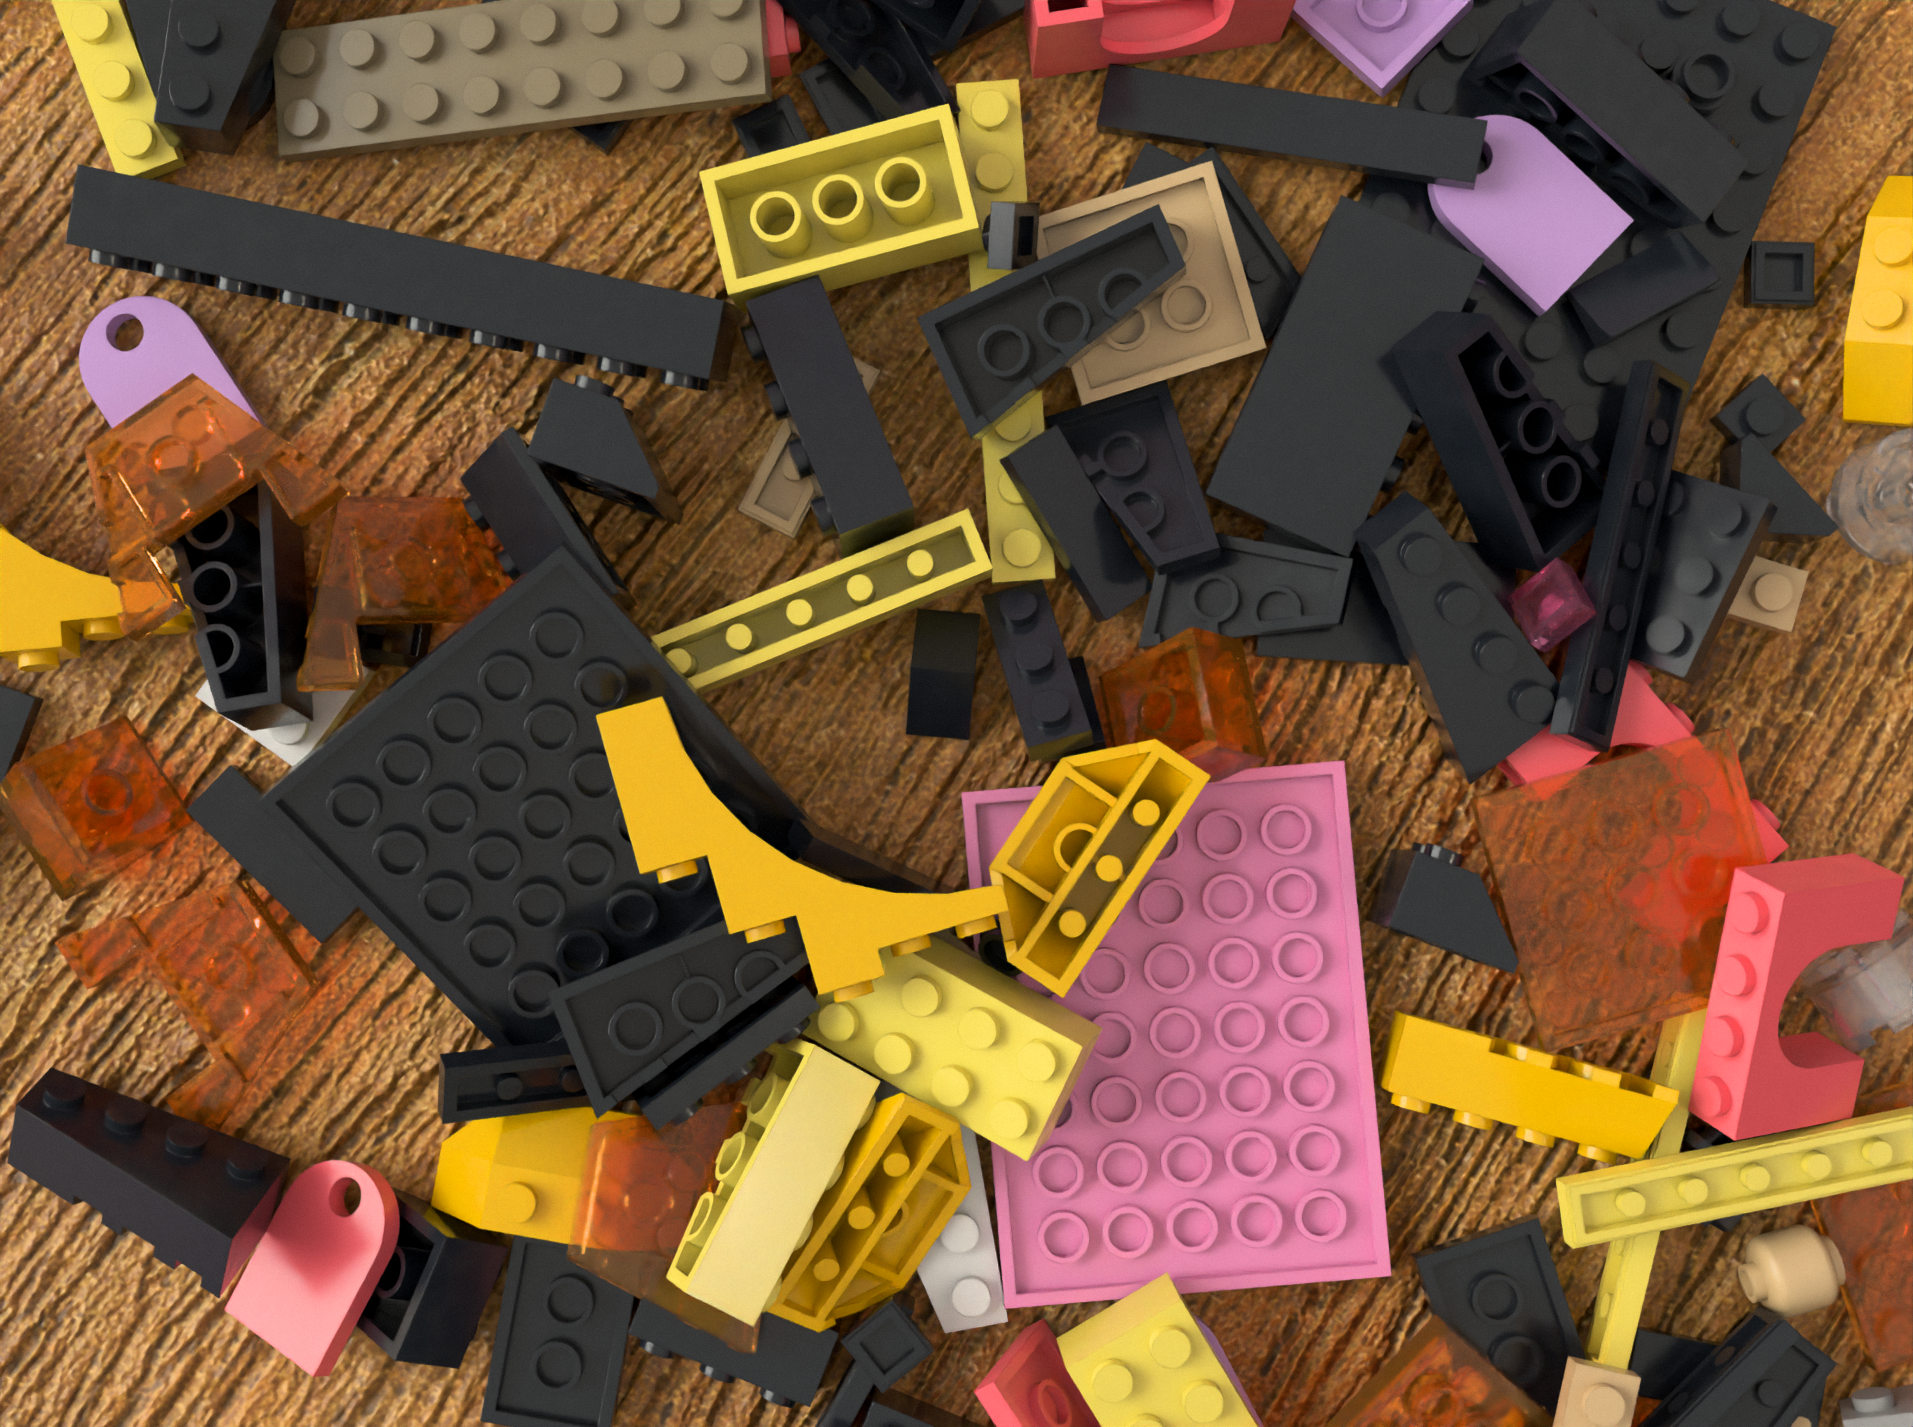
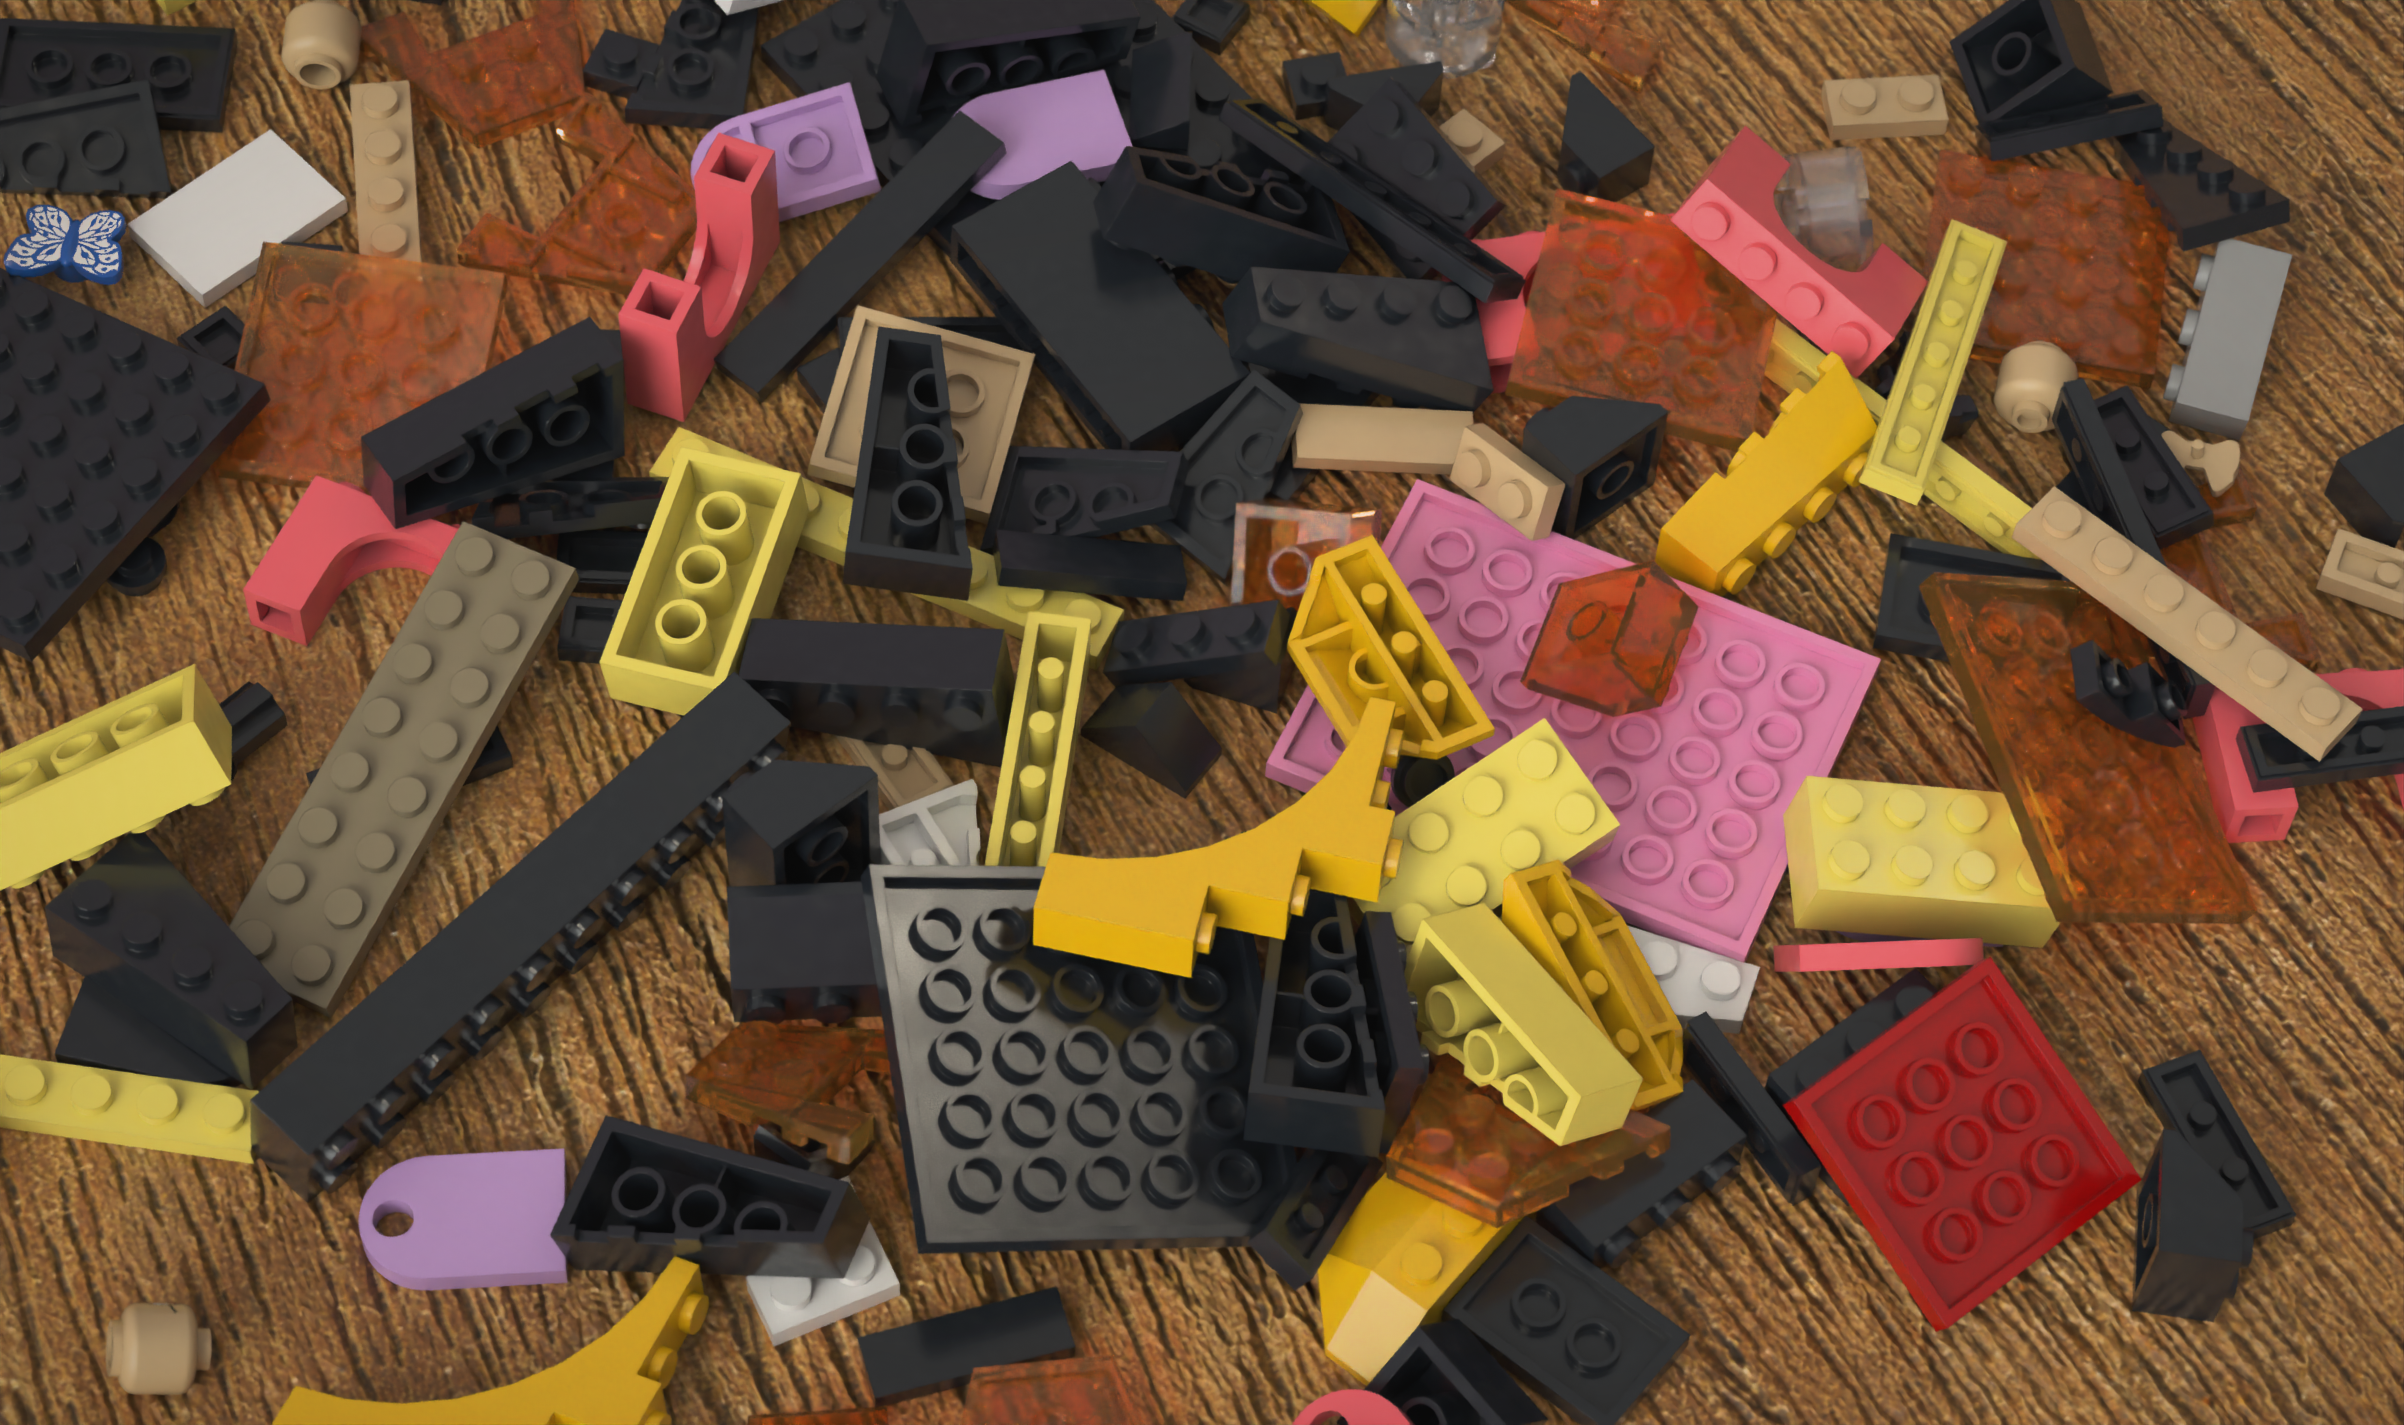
camera: 65 degrees left, 30 degrees down
(174, 470) = (571, 1179): clear orange wing -> none
(712, 559) = (933, 829): none -> white wing
(887, 1344) = (1722, 1038): black tile -> none
(1011, 234) = (818, 470): black plate -> none
(1251, 1035) = (1612, 640): none -> clear orange slope
(1373, 706) = (1378, 438): none -> tan tile
(1376, 849) = (1507, 481): none -> tan plate
(1551, 605) = (1382, 248): clear pink plate -> none
(1834, 723) = (1600, 147): none -> black slope

